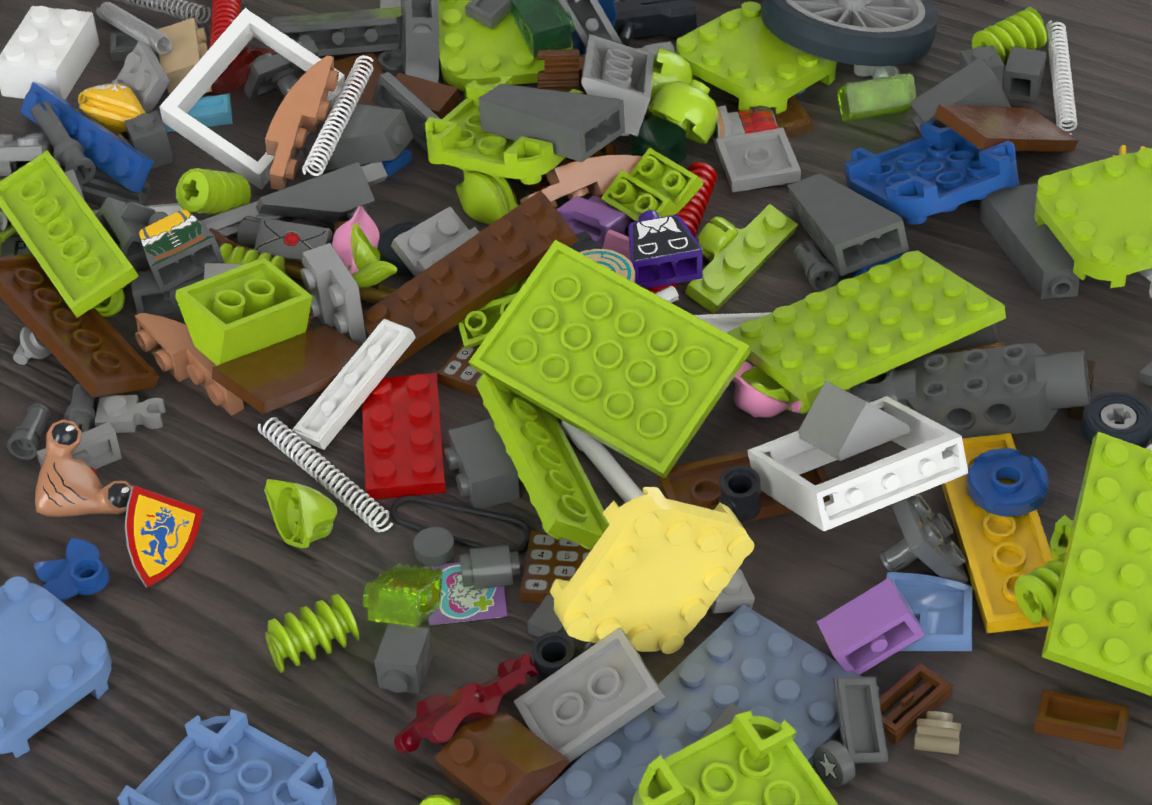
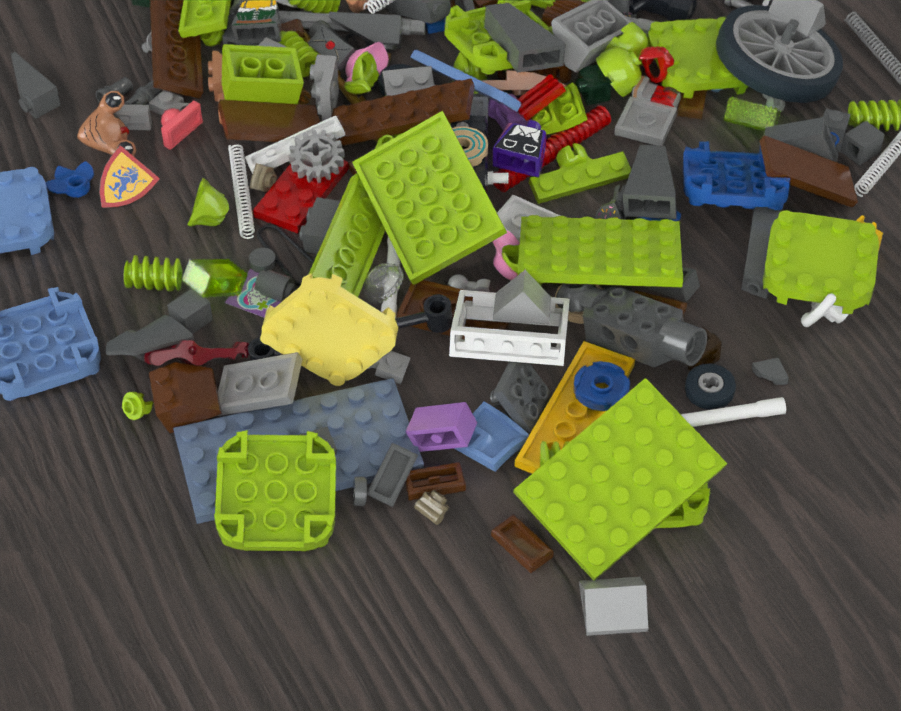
camera: 30 degrees right, 5 degrees up
(163, 429) = (180, 124): none -> coral tile
(342, 443) = (262, 178): none -> dark tan plate
(387, 715) = (156, 335): none -> dark grey panel
(404, 379) = (316, 156): none -> light grey gear
(505, 202) = (455, 74): none -> medium blue tile
(621, 181) = (539, 97): none -> red tile
(623, 484) = (382, 282): none -> clear hat
(718, 447) = (461, 282): none -> light grey arm
(736, 75) = (664, 59): none -> red piece
(819, 279) = (609, 210): none -> dark grey tile

